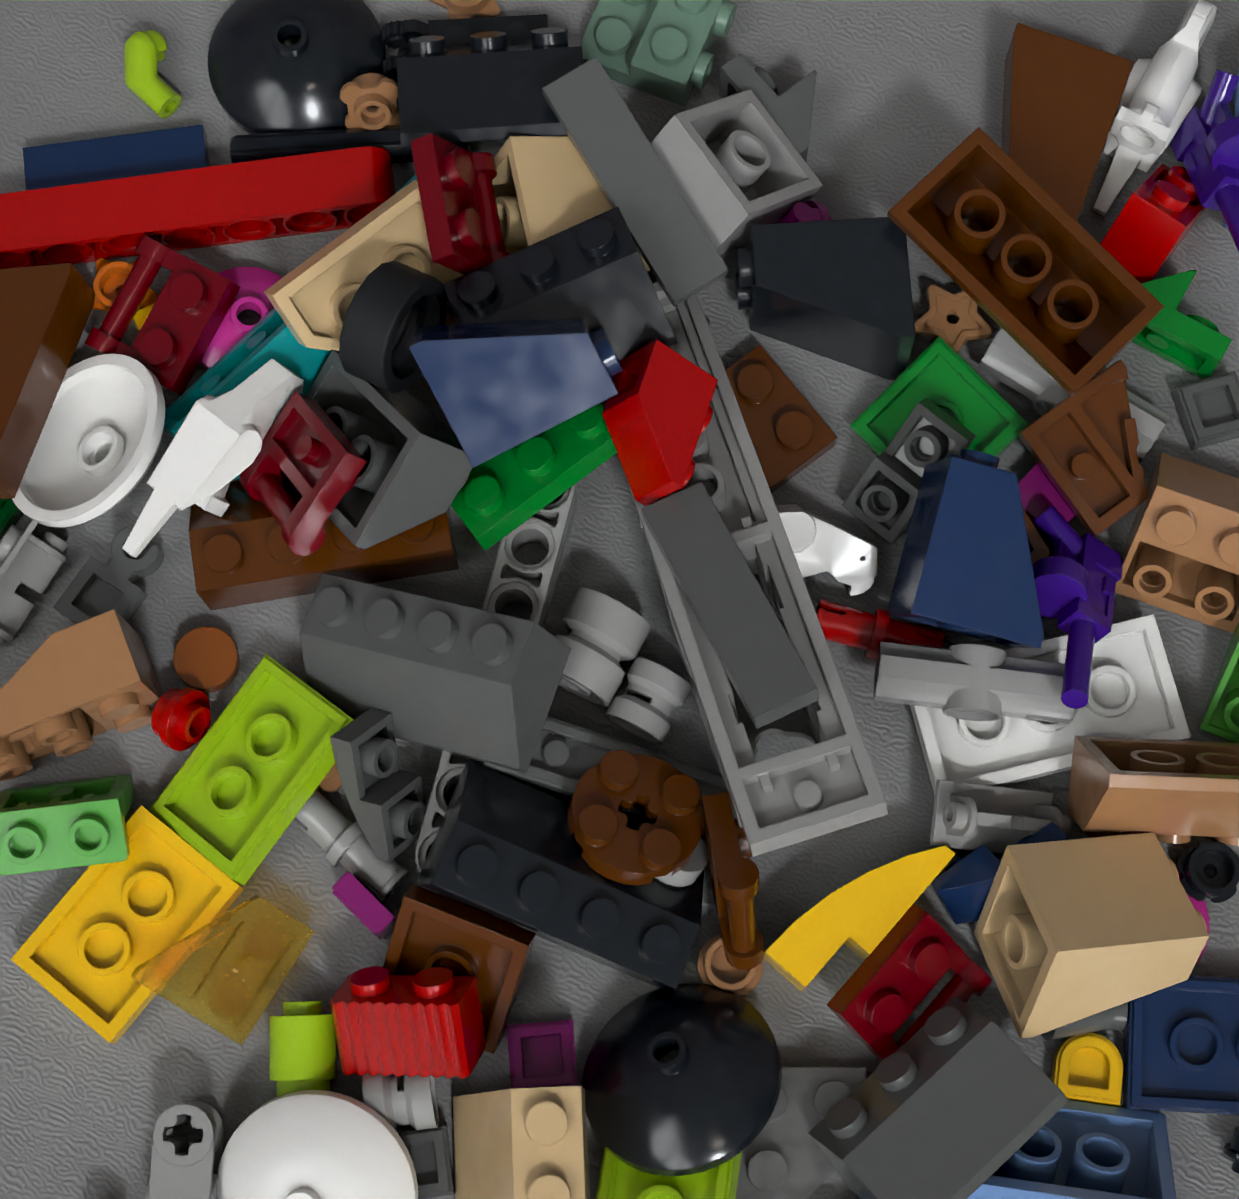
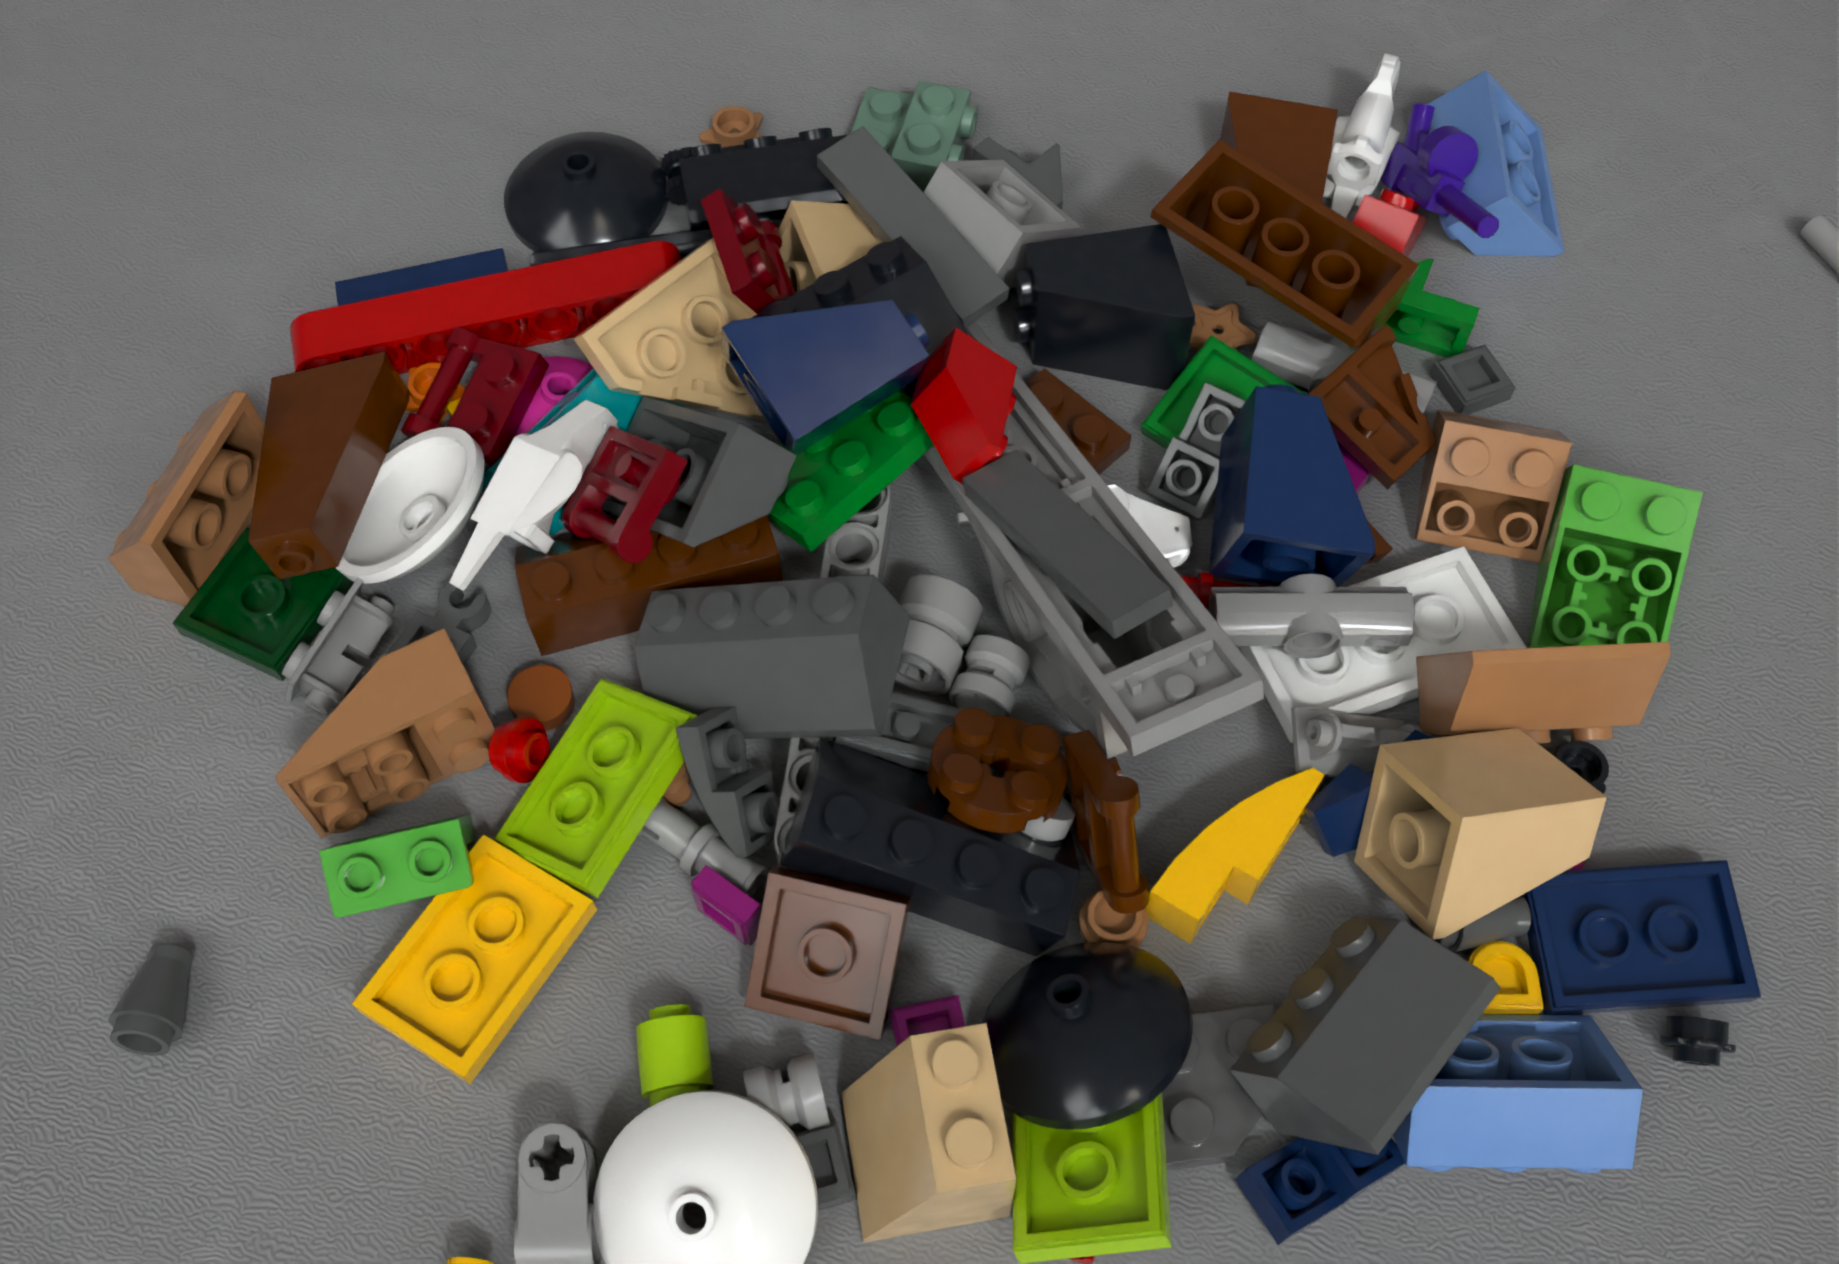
camera: 10 degrees left, 15 degrees down
(141, 75) = (443, 215): lime arm -> none
(229, 966) = (587, 983): clear yellow wing -> none
(366, 91) = (657, 197): medium nougat plate -> none
(383, 321) = (689, 352): black tyre -> none
(408, 1023) = (786, 1009): red brick -> none
(900, 977) = (1291, 904): dark red plate -> none
(1079, 593) = (1398, 537): dark purple piece -> none

